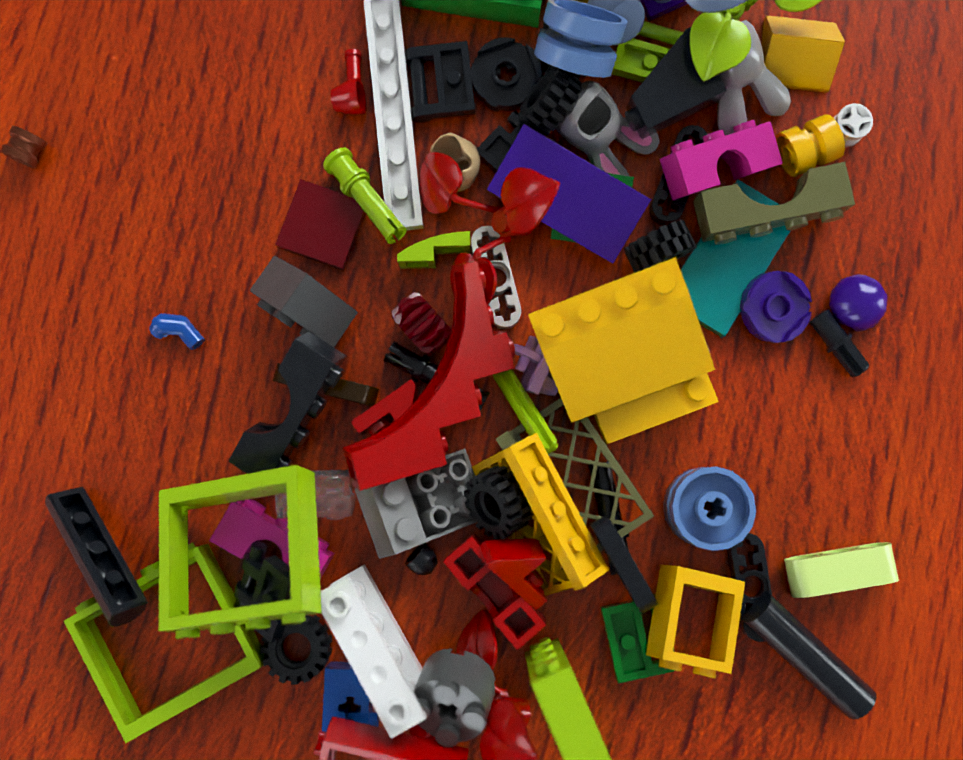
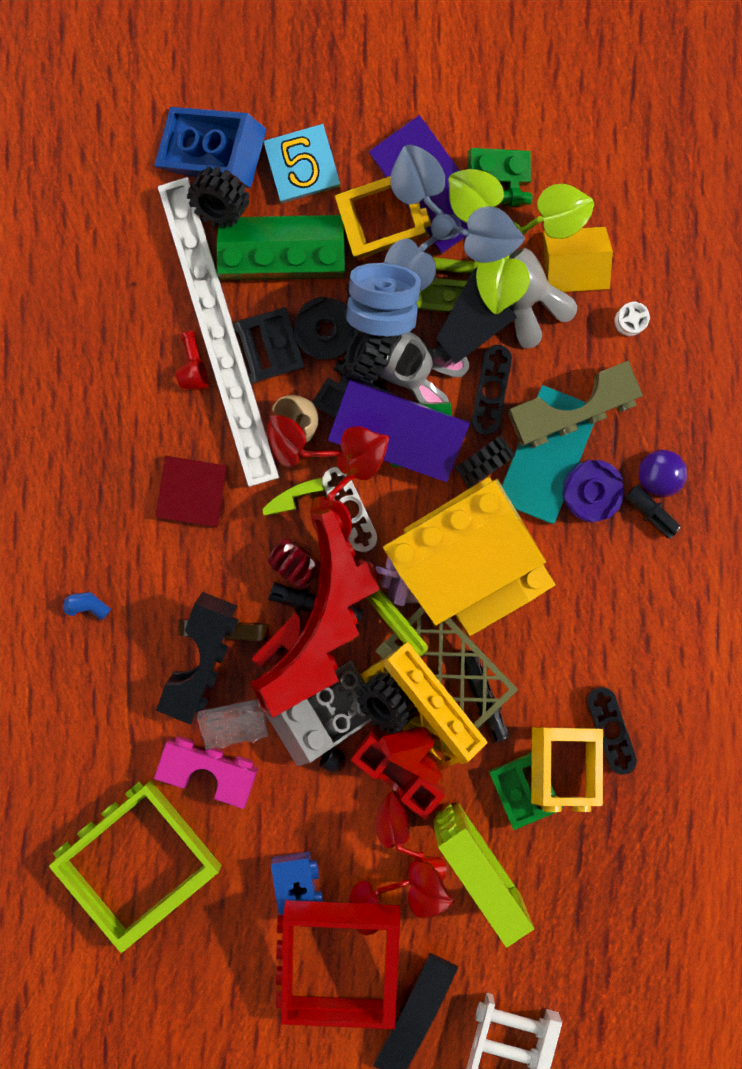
camera: 15 degrees left, 5 degrees up
(97, 556) = (64, 807): black brick -> none
(272, 585) = (215, 816): black plate -> none
(300, 670) = (239, 869): black tyre -> none
(302, 300) = (189, 565): dark grey brick -> none
(303, 551) = (236, 773): lime window -> none
(356, 184) = (214, 452): lime pin -> none
(375, 648) = (310, 840): white fence -> none
(455, 696) = (379, 866): dark grey brick -> none
(623, 564) = (499, 734): black beam -> none
(731, 510) = (581, 679): medium blue wheel -> none
(746, 152) = (500, 386): dark pink arch -> none
(810, 656) = (667, 778): black brick -> none
(817, 143) = (602, 343): yellow wheel -> none
(841, 570) = (682, 703): yellowish green beam -> none

